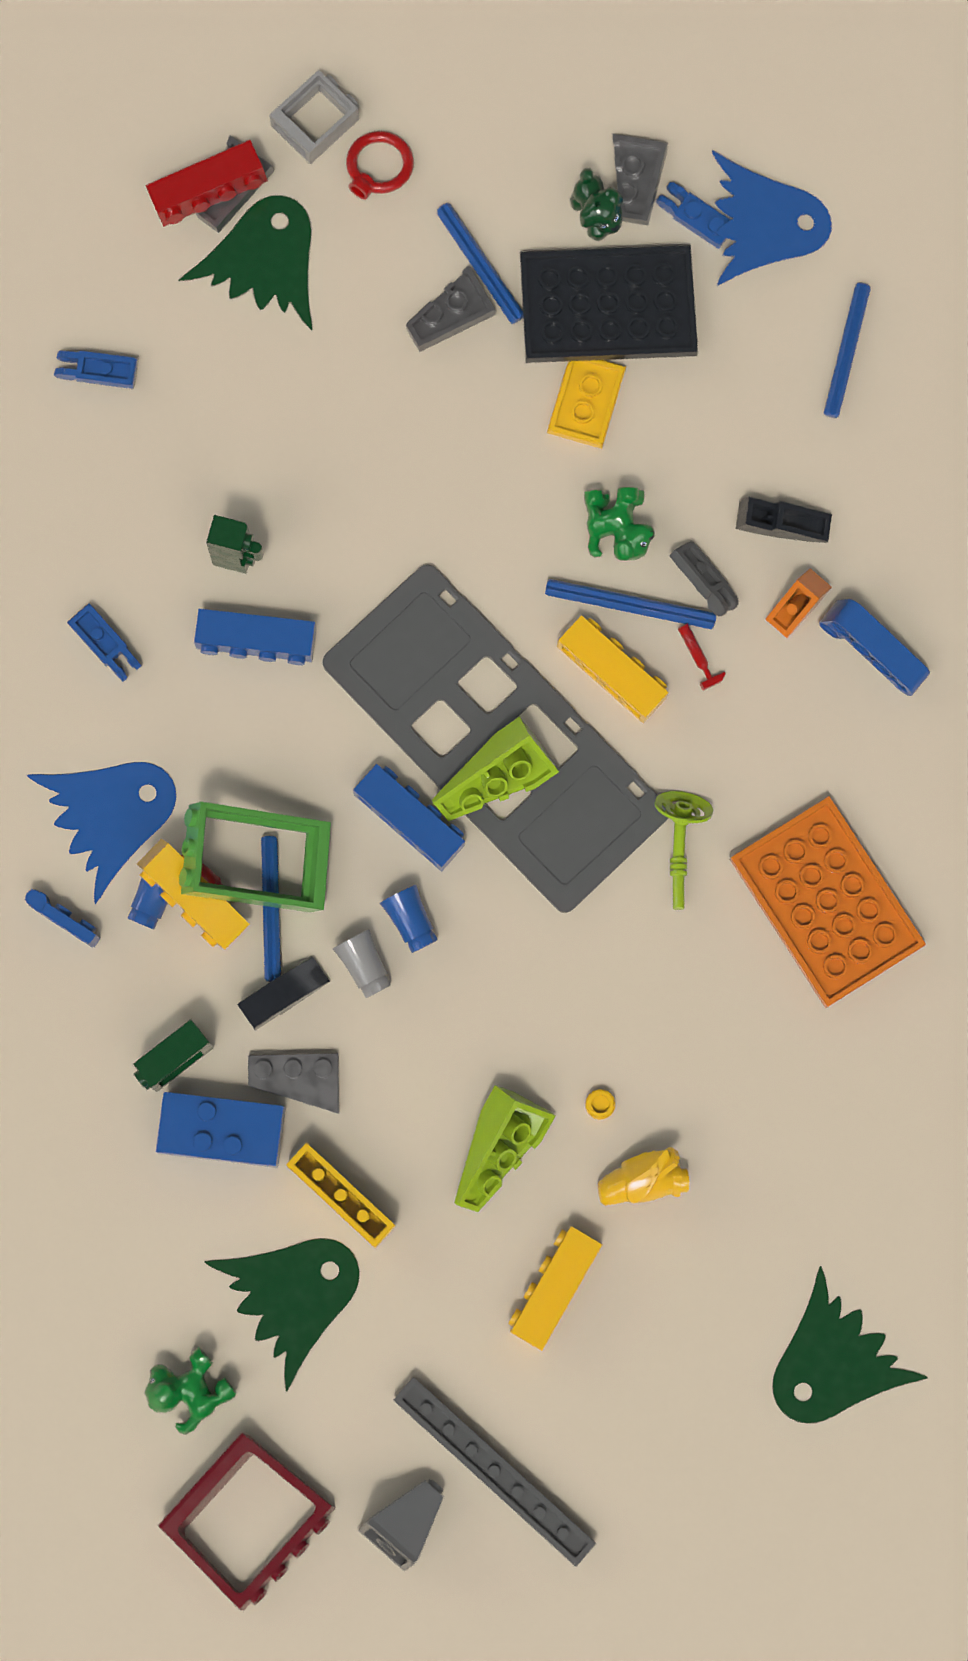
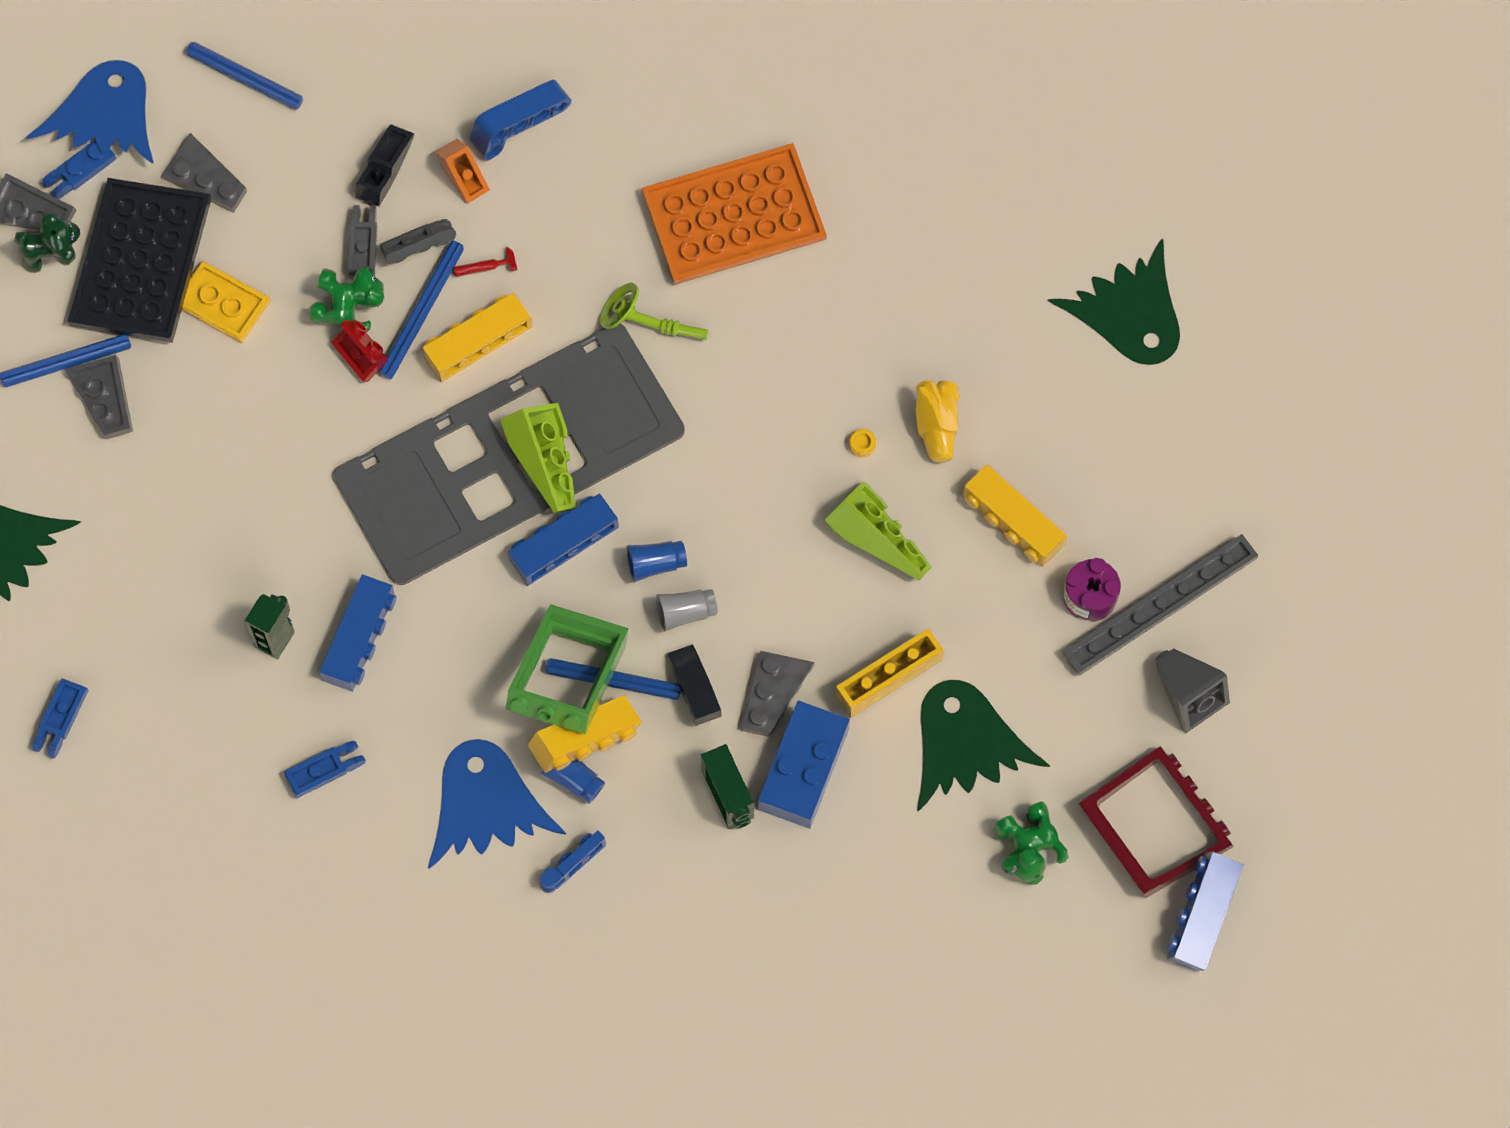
camera: 70 degrees left, 10 degrees down
(155, 1595) = (1204, 911): none -> brick
(490, 1410) = (1089, 604): none -> magenta brick
(565, 552) = (359, 350): none -> red bracket
(689, 523) = (362, 241): none -> dark grey hinge
(722, 342) = (201, 171): none -> flat silver wing

